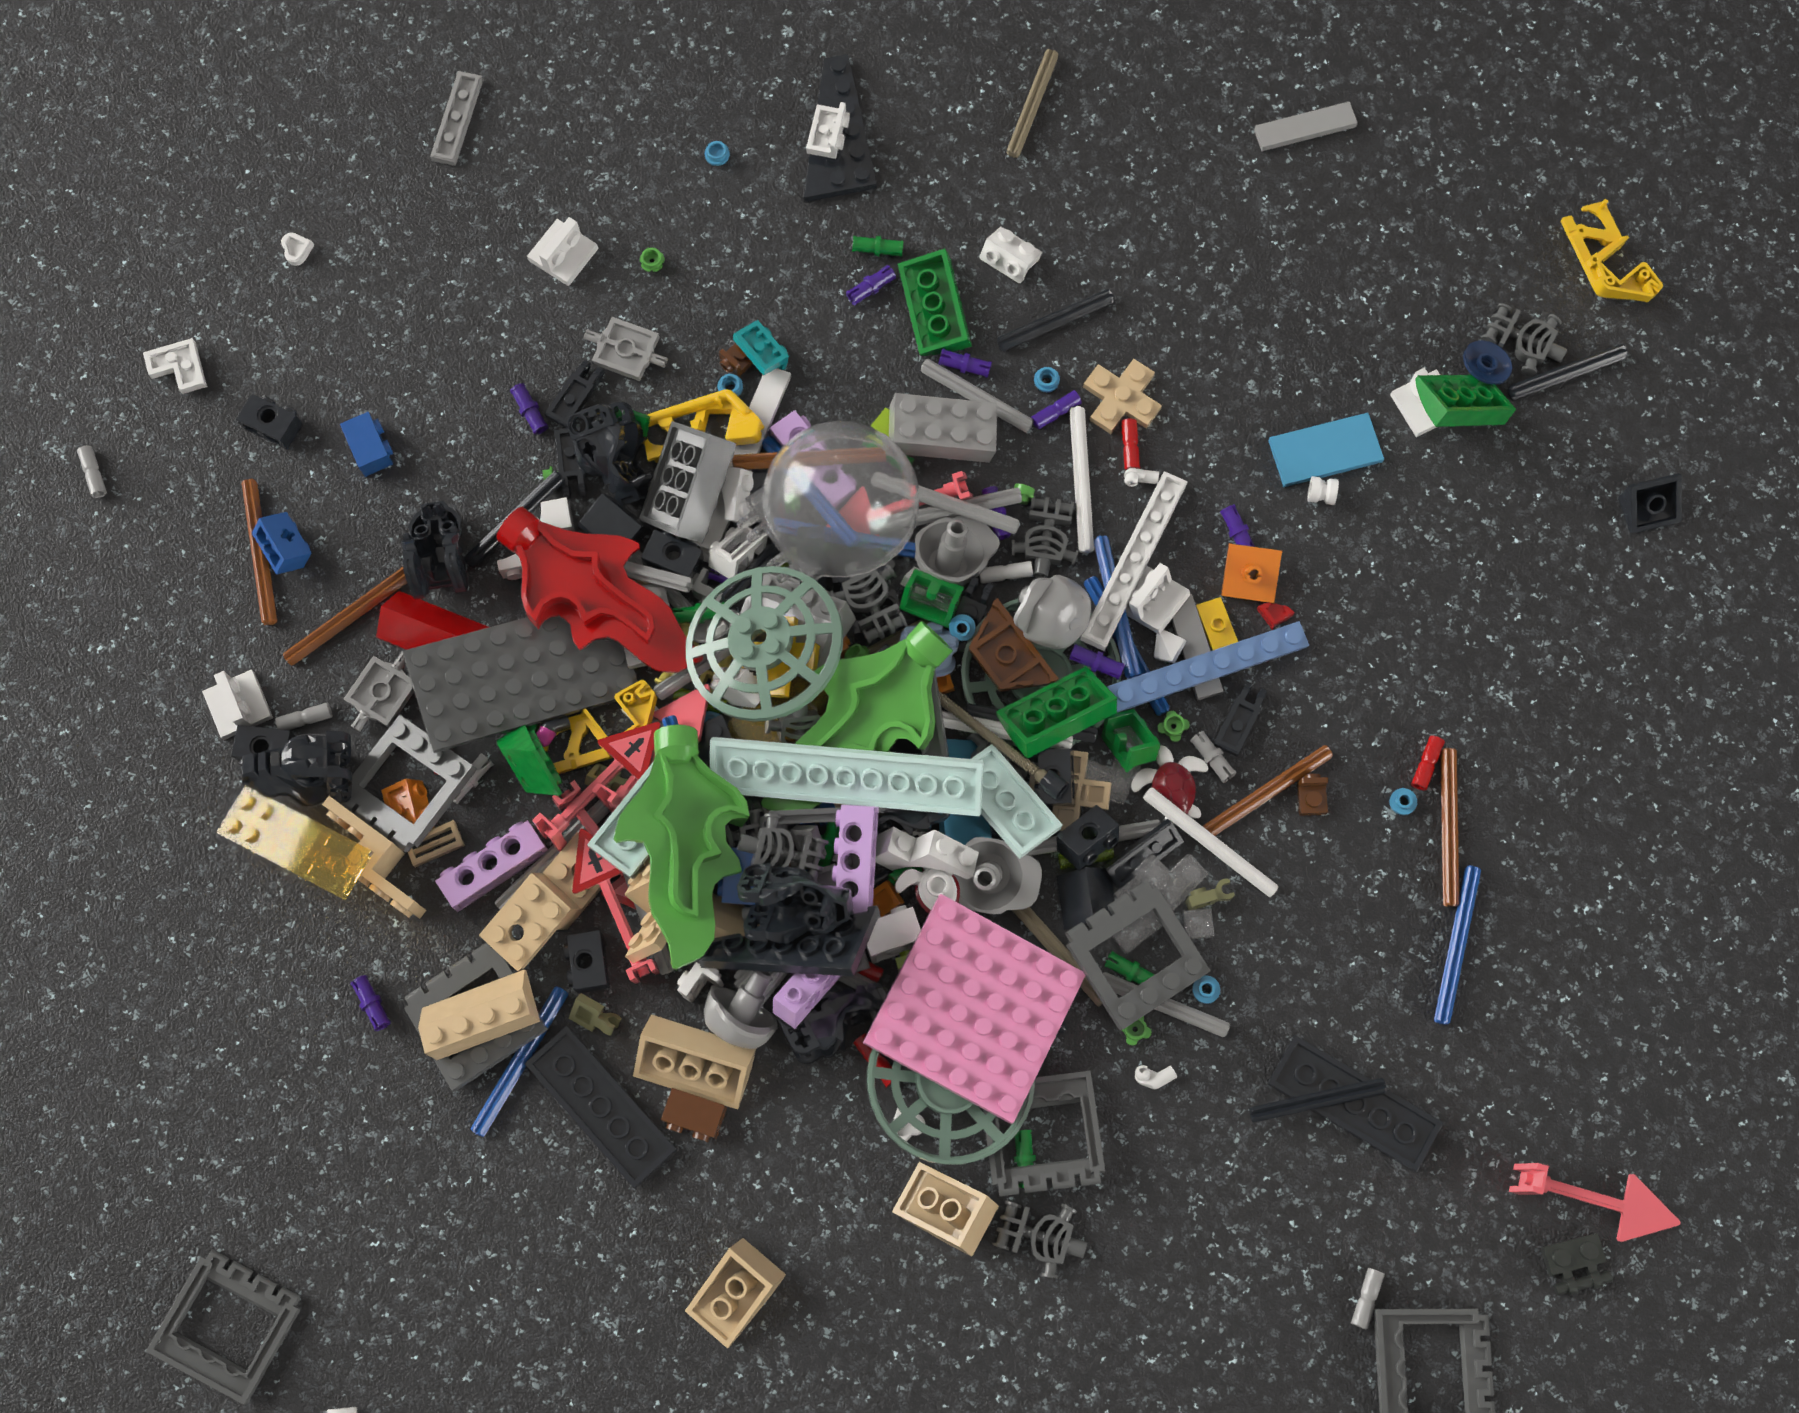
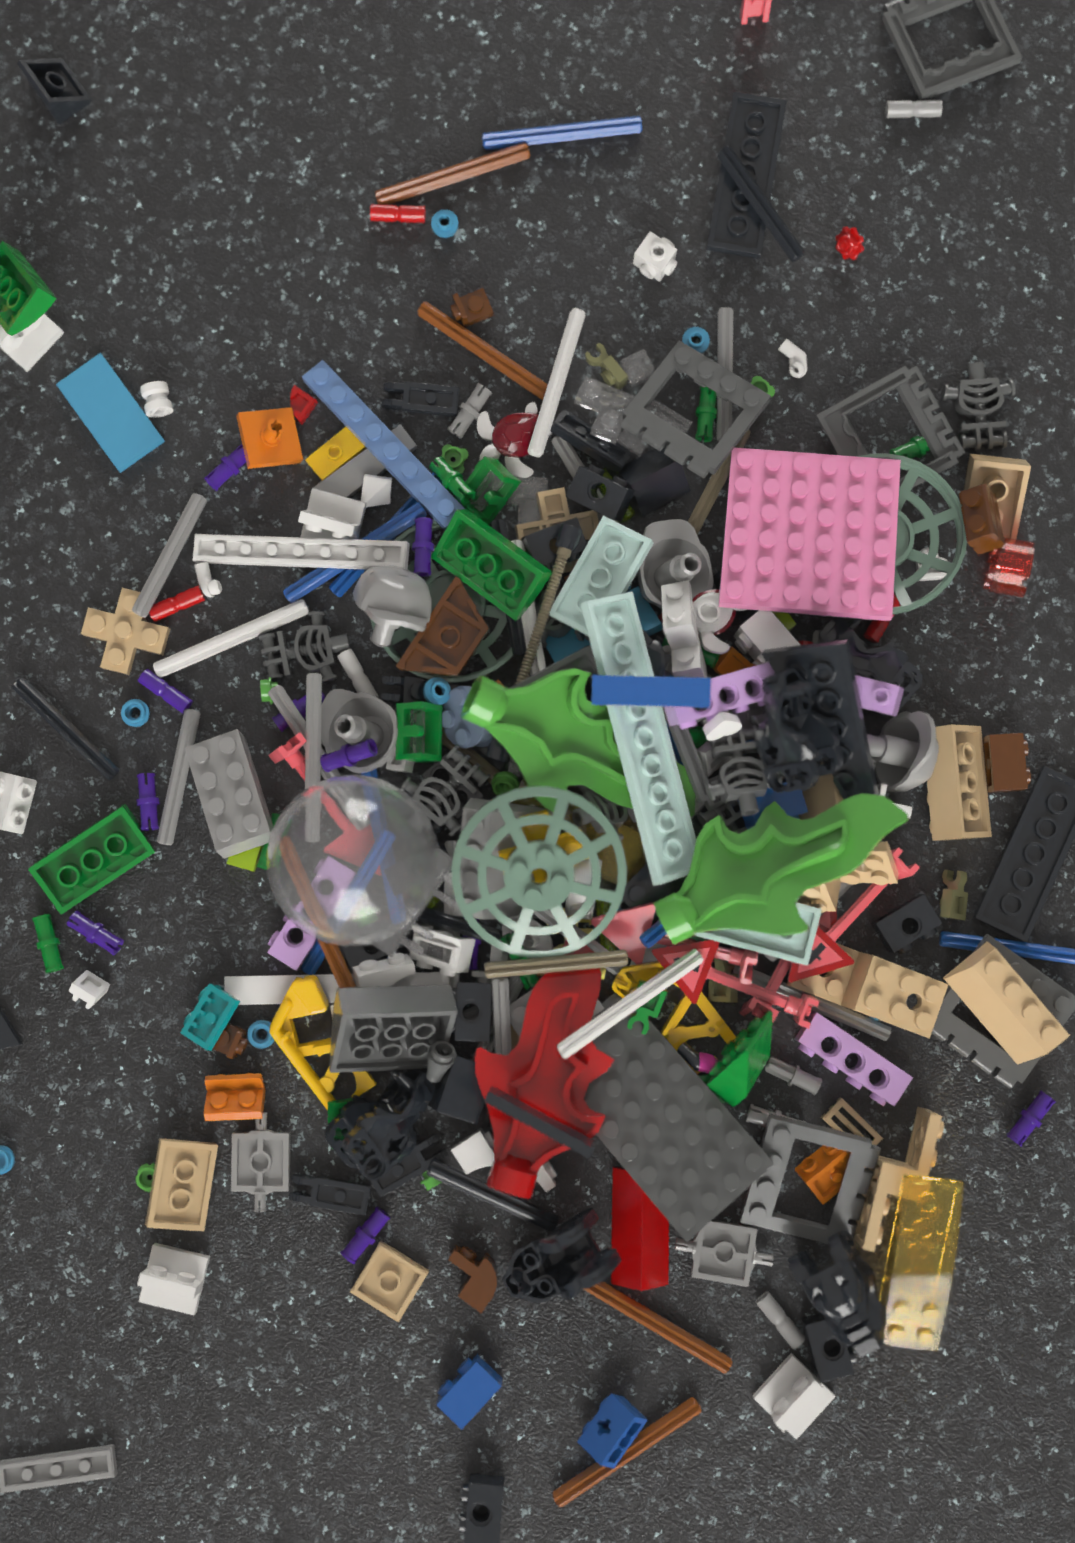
camera: 110 degrees left, 10 degrees up
(455, 488) = (482, 1278): none -> reddish brown brick
(483, 415) = (389, 1281): none -> tan tile
(501, 809) = (793, 1075): none -> light grey axle
(554, 563) = (540, 1122): none -> black tile
(615, 701) = (650, 1008): none -> green plate
(620, 680) = (629, 1003): none -> white axle
(634, 280) = (181, 1185): none -> tan plate
(643, 512) = (440, 1058): none -> dark grey cone
(680, 633) = (556, 964): none -> dark tan axle
(686, 345) = (234, 1097): none -> orange bracket
(826, 264) = (89, 988): none -> white tile
(826, 848) = (722, 725): none -> white tile
(874, 1192) = (1009, 567): none -> clear red brick
(879, 789) = (651, 691): none -> blue tile
(926, 1175) = (981, 519): none -> reddish brown brick
(933, 530) = (349, 755): none -> dark purple pin
(1149, 711) = (452, 481): none -> green pin
(1175, 453) = (169, 555): none -> light grey axle
(1250, 1175) = (849, 243): none -> red plant
(1306, 974) = (655, 257): none -> white brick

